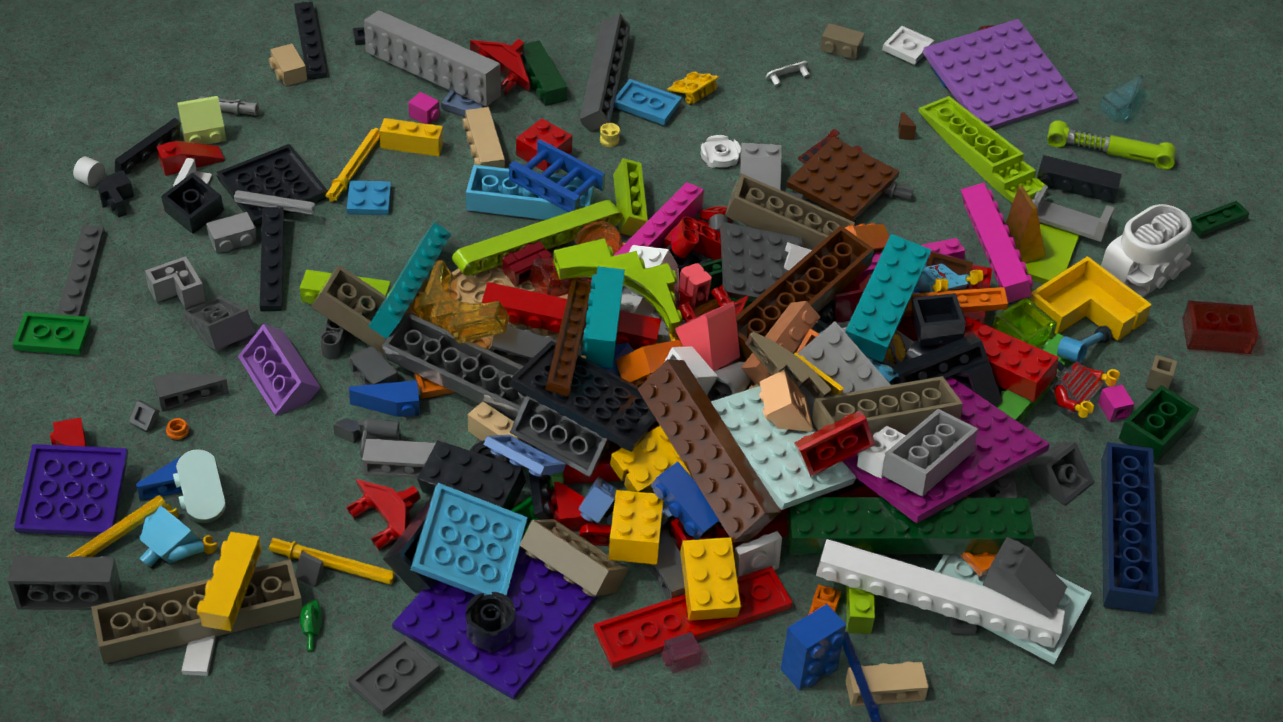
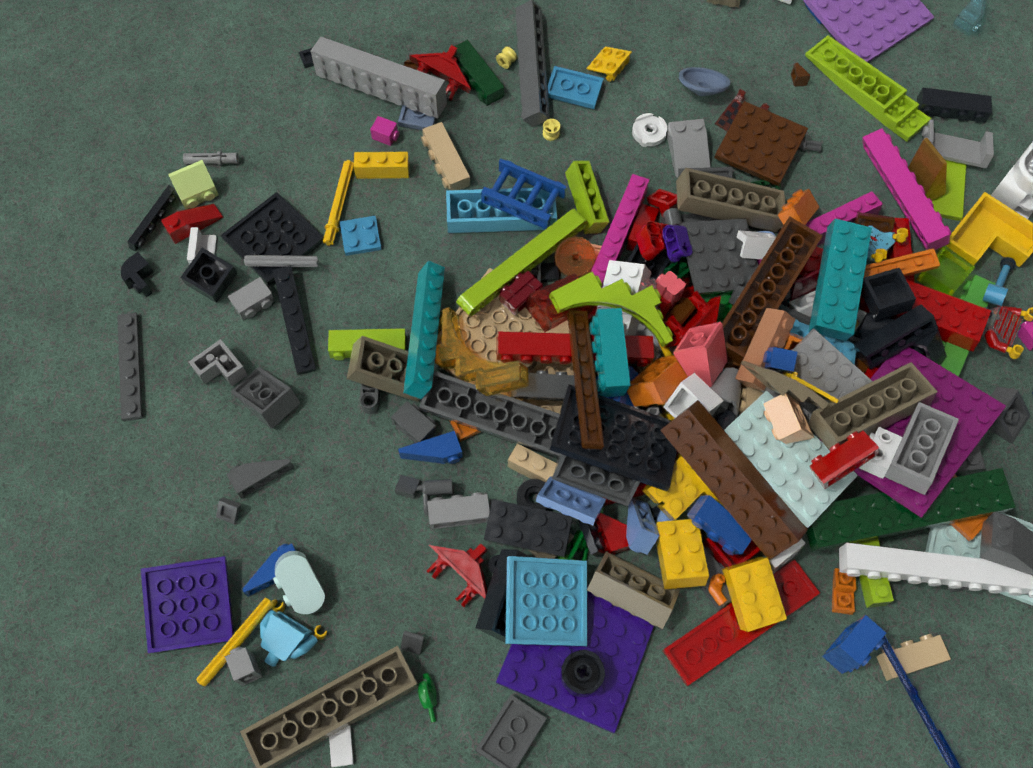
camera: 10 degrees left, 20 degrees up
(52, 333) = (123, 437): green plate -> none
(63, 582) = (209, 706): dark grey brick -> none
(68, 433) = (170, 547): red slope -> none
(88, 171) = (106, 255): white piece -> none
(114, 545) = (243, 666): none -> light grey brick
(177, 429) = (256, 513): orange plate -> none
(229, 581) = (353, 685): yellow brick -> none
(278, 370) = (331, 439): medium lavender slope -> none
(287, 65) = (252, 104): tan brick -> none
(310, 40) = (263, 71): black plate -> none
(333, 561) = (427, 628): yellow axle -> none
(527, 142) = (497, 146): red piece -> none
(579, 64) = (506, 57): none -> light yellow wheel
(596, 534) = (637, 558): red plate -> none
(668, 570) = (715, 588): none -> orange arm
(681, 652) = (741, 662): clear pink brick -> none
(712, 240) = (676, 240): none -> dark purple piece
(774, 74) = (675, 38): white piece -> none
(791, 340) = (780, 359): none -> blue brick
(793, 116) = (704, 81): none -> sand blue dish
(1161, 155) = (1015, 66): lime piece -> none

